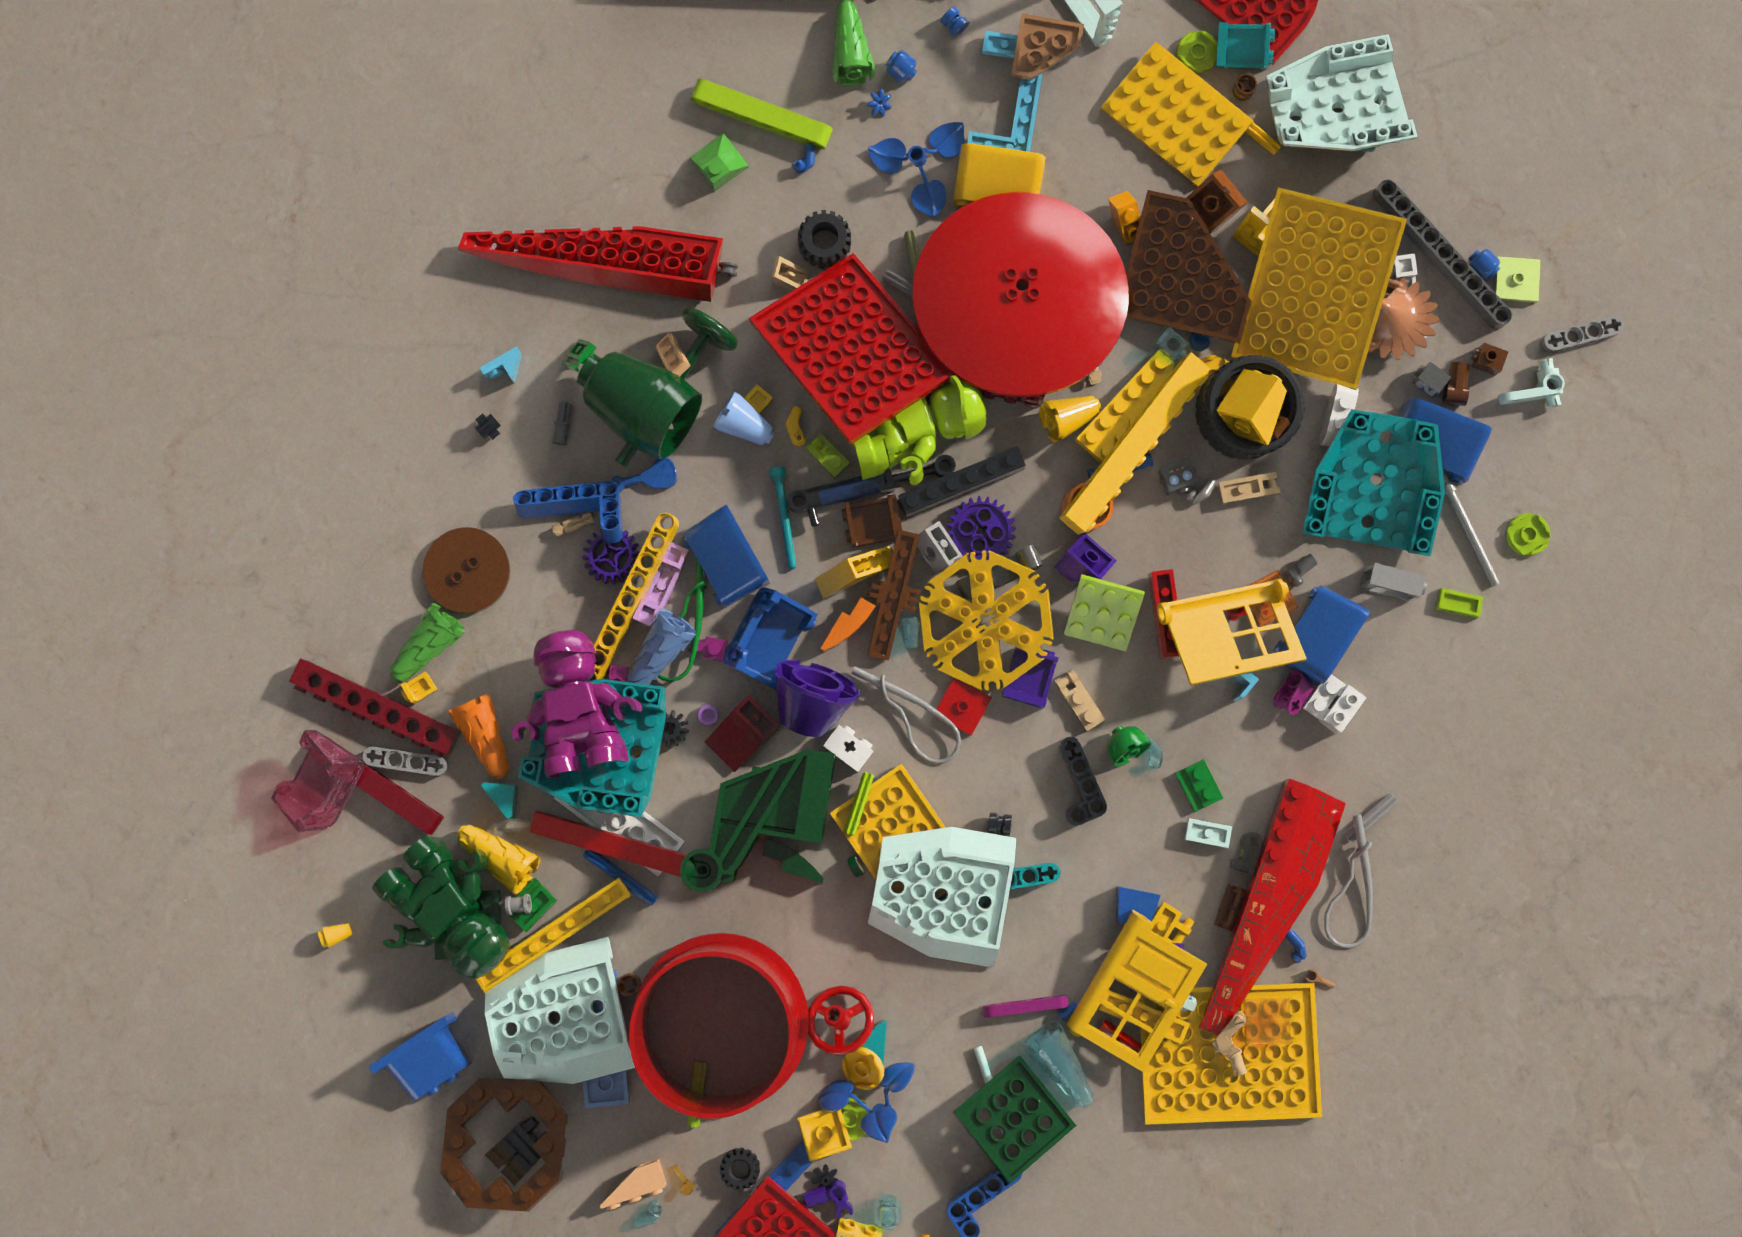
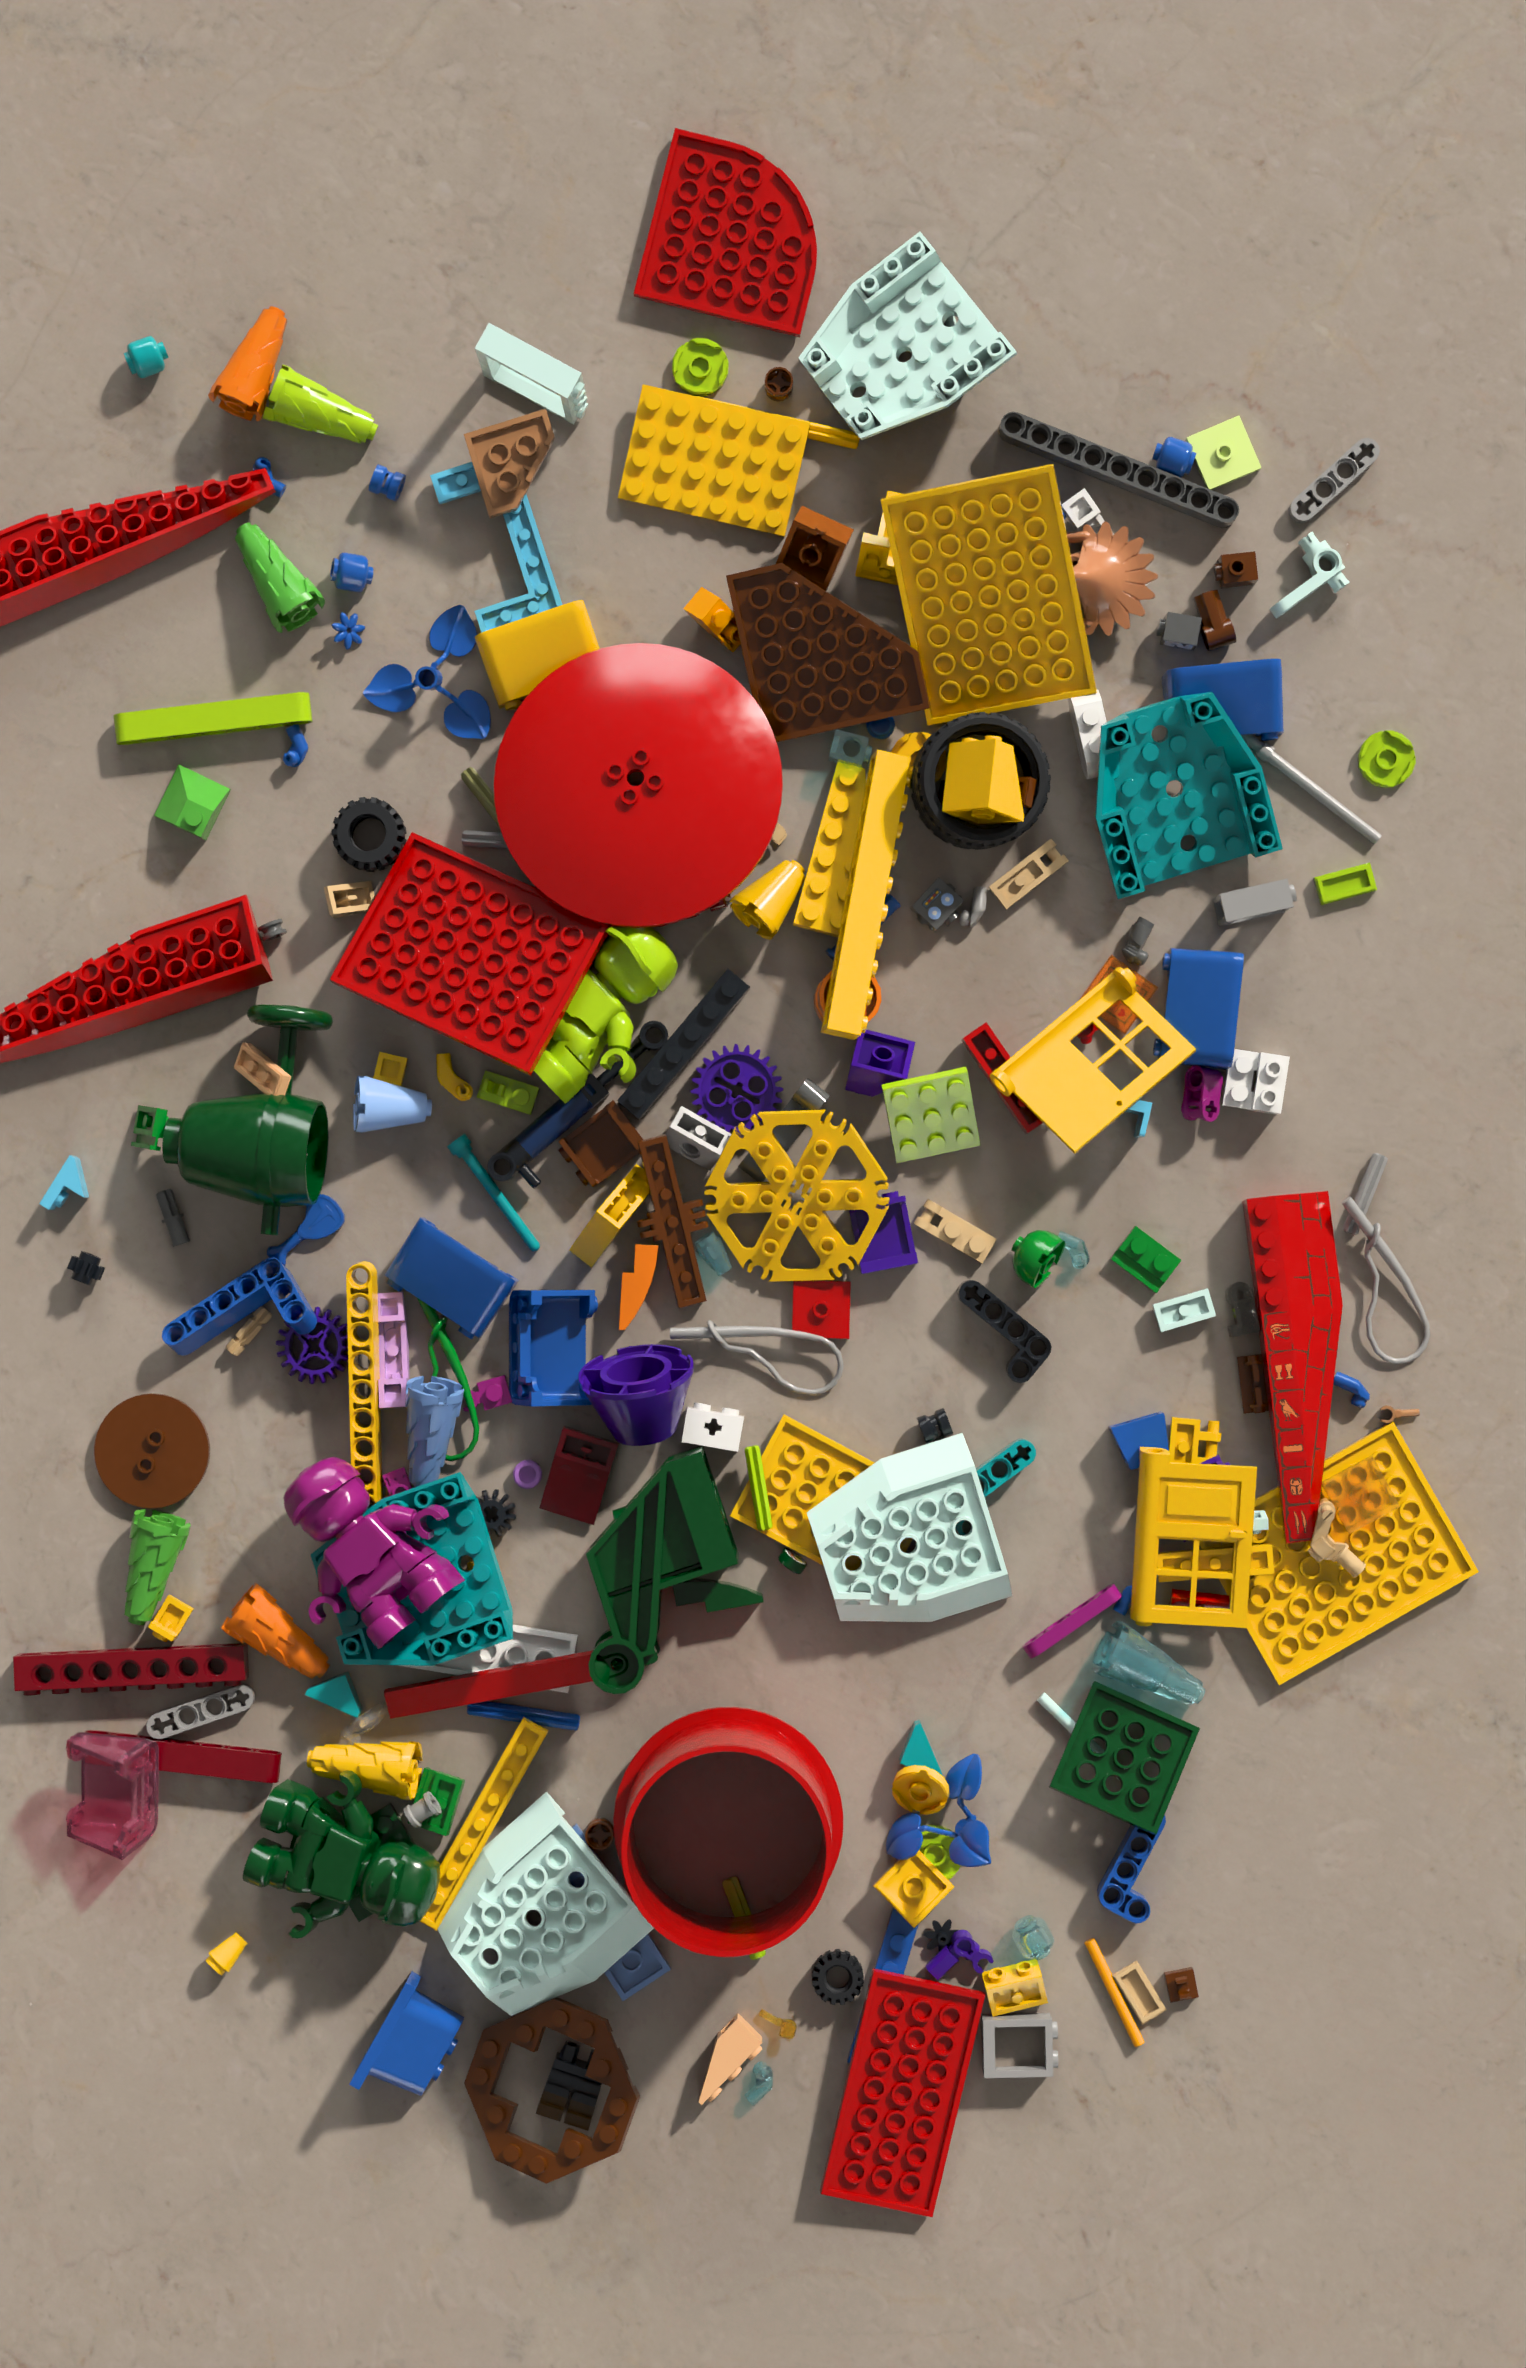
camera: 30 degrees left, 5 degrees up
(834, 1012) = (853, 1748): red piece -> none
(1245, 46) = (753, 334): teal panel -> none

